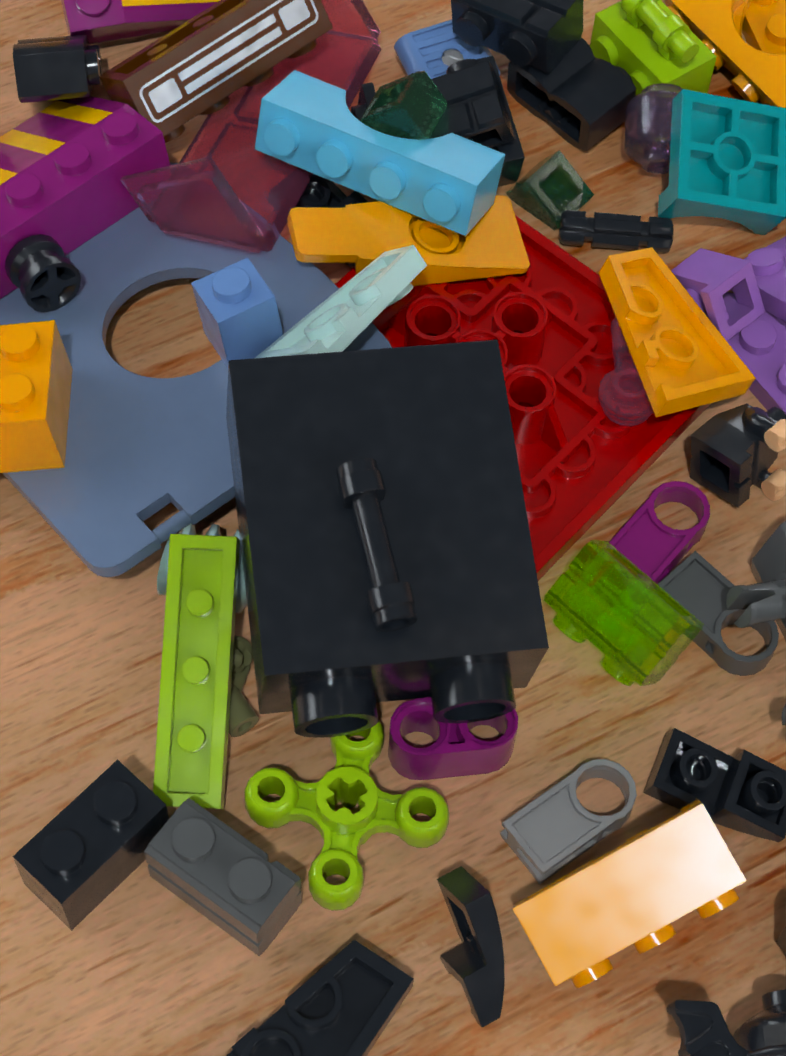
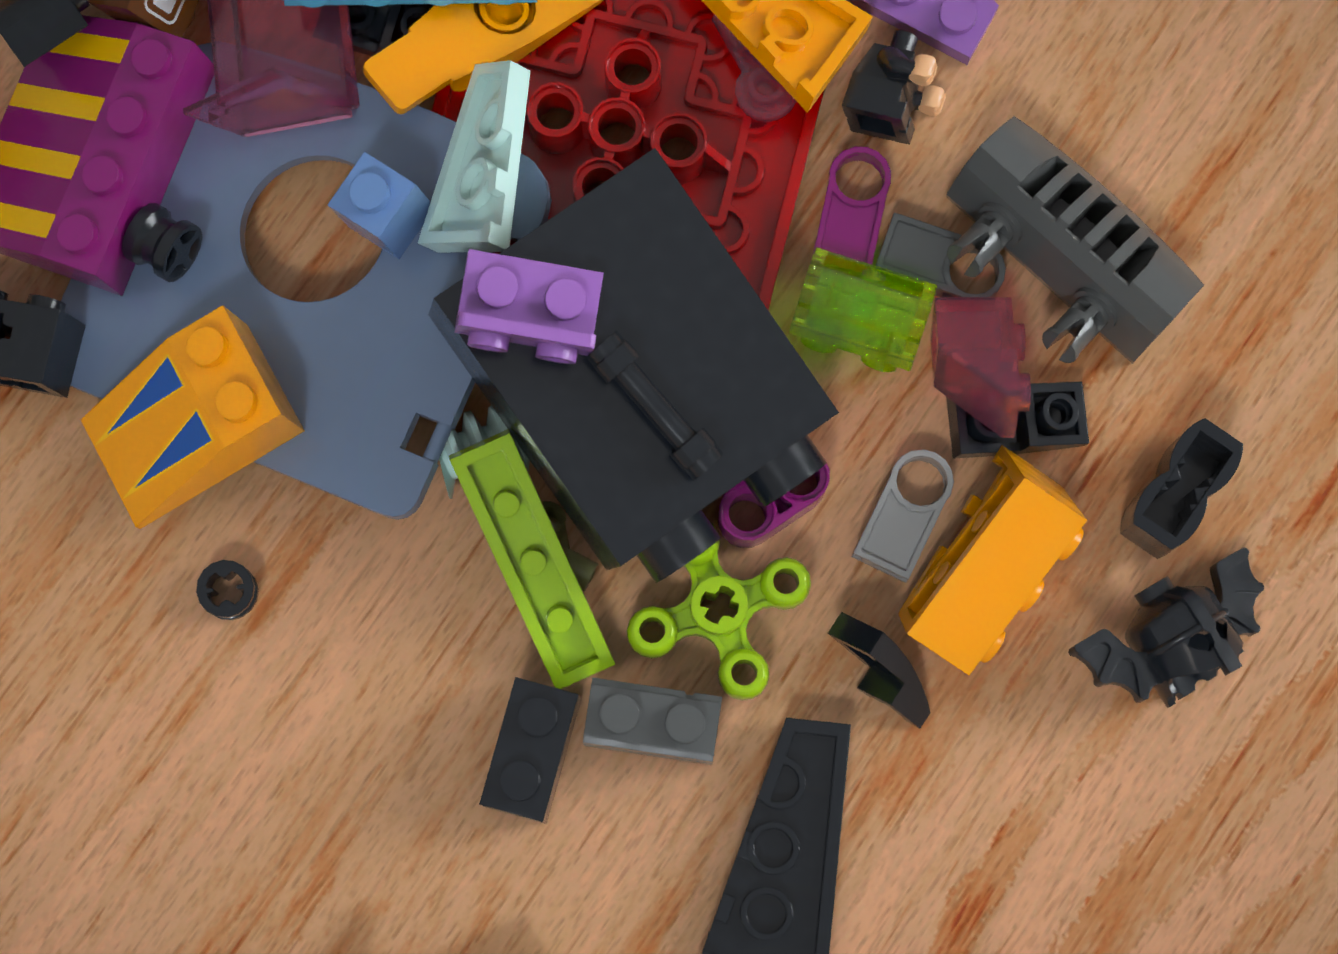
camera: 25 degrees left, 20 degrees up
(307, 402) = (528, 305): none -> medium lavender bracket
(710, 701) = (978, 357): none -> clear pink slope

